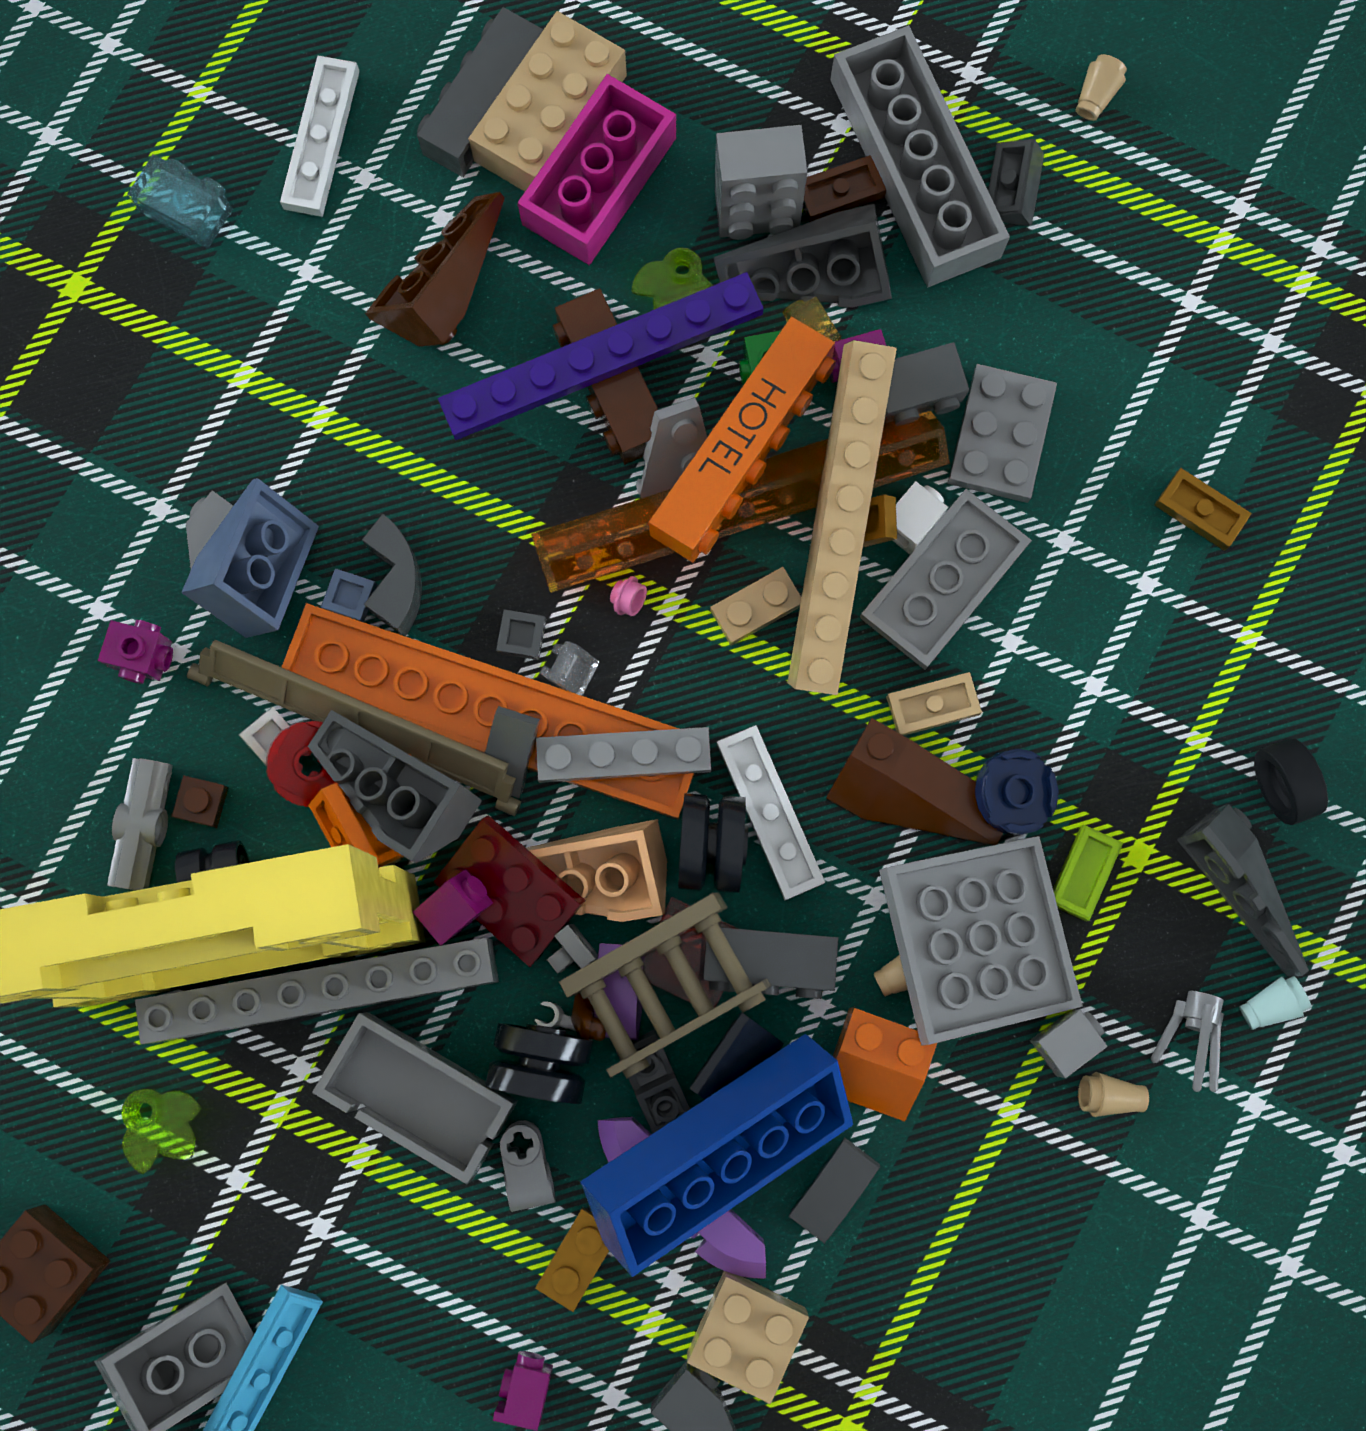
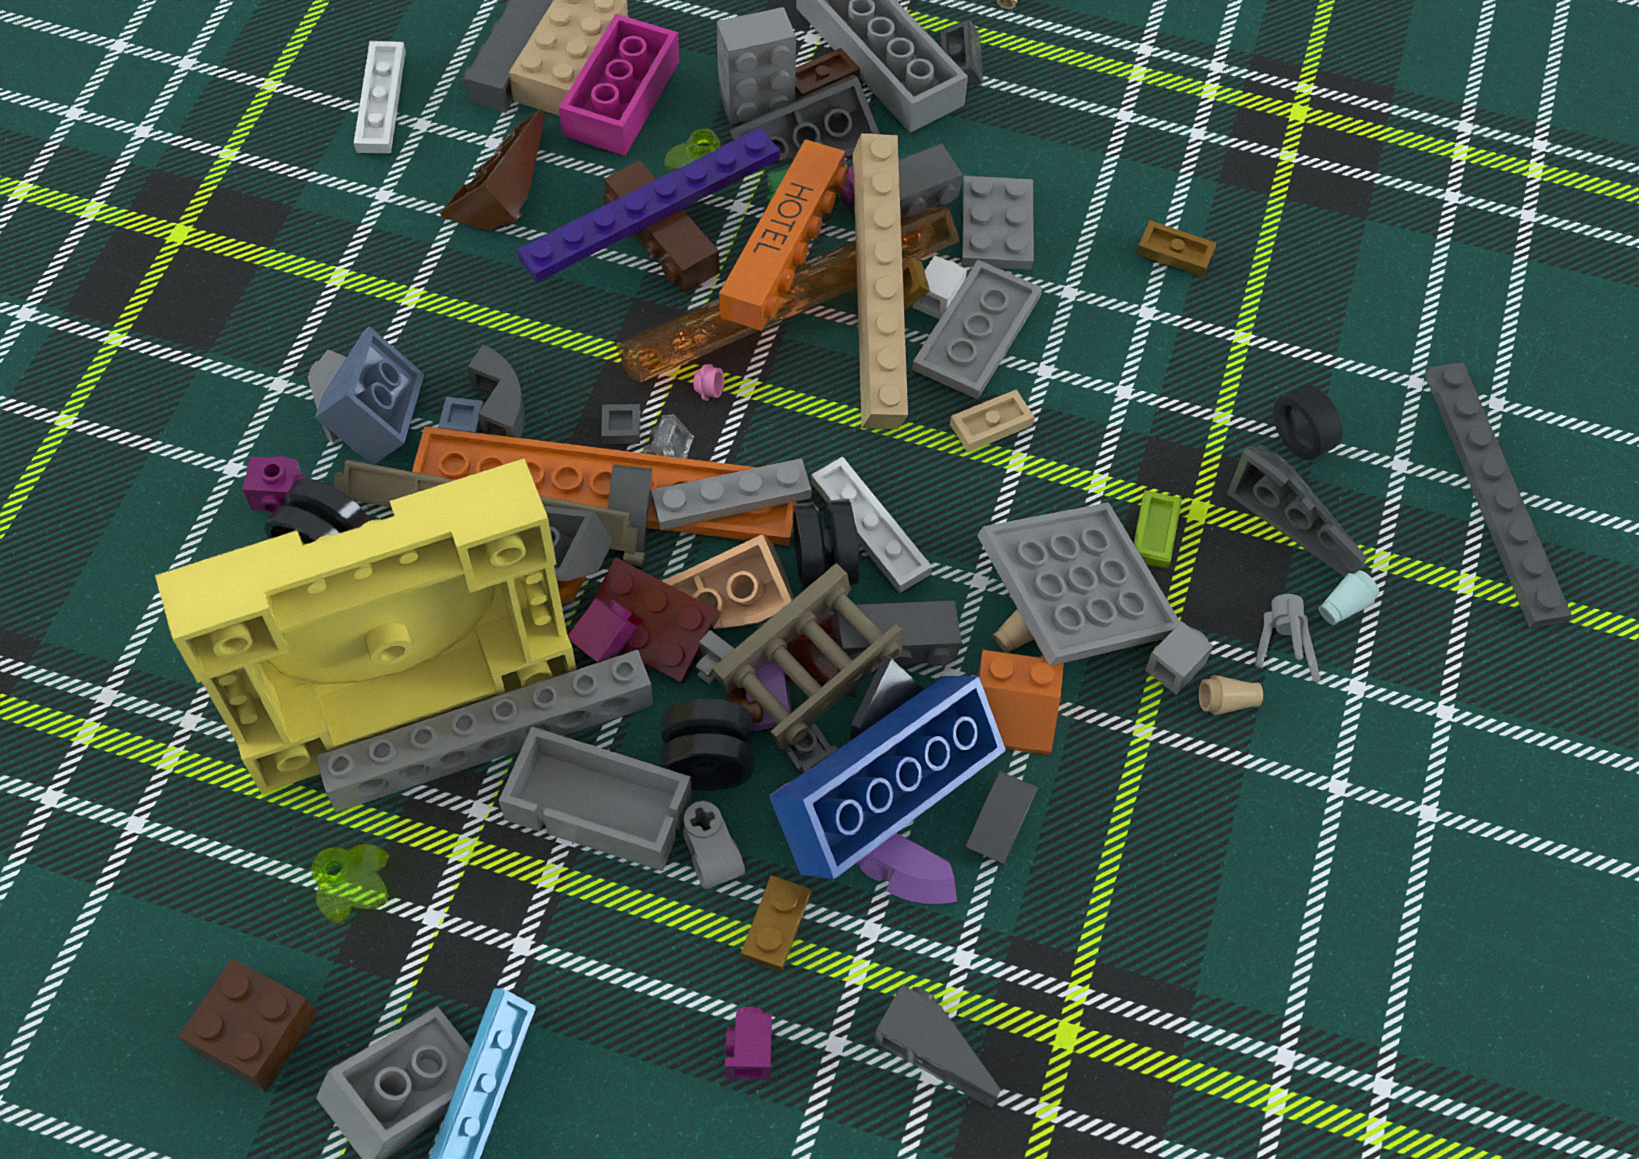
camera: 15 degrees left, 20 degrees down
(171, 721) = (314, 512): none -> black wheel
(180, 200) = (266, 155): clear light blue brick -> none
(674, 441) = (722, 249): light grey wing -> none
(747, 1336) = (952, 950): tan brick -> none
(756, 606) = (821, 375): tan plate -> none
(909, 787) = (985, 482): reddish brown wedge -> none
(1016, 792) = (1079, 473): dark blue tile -> none

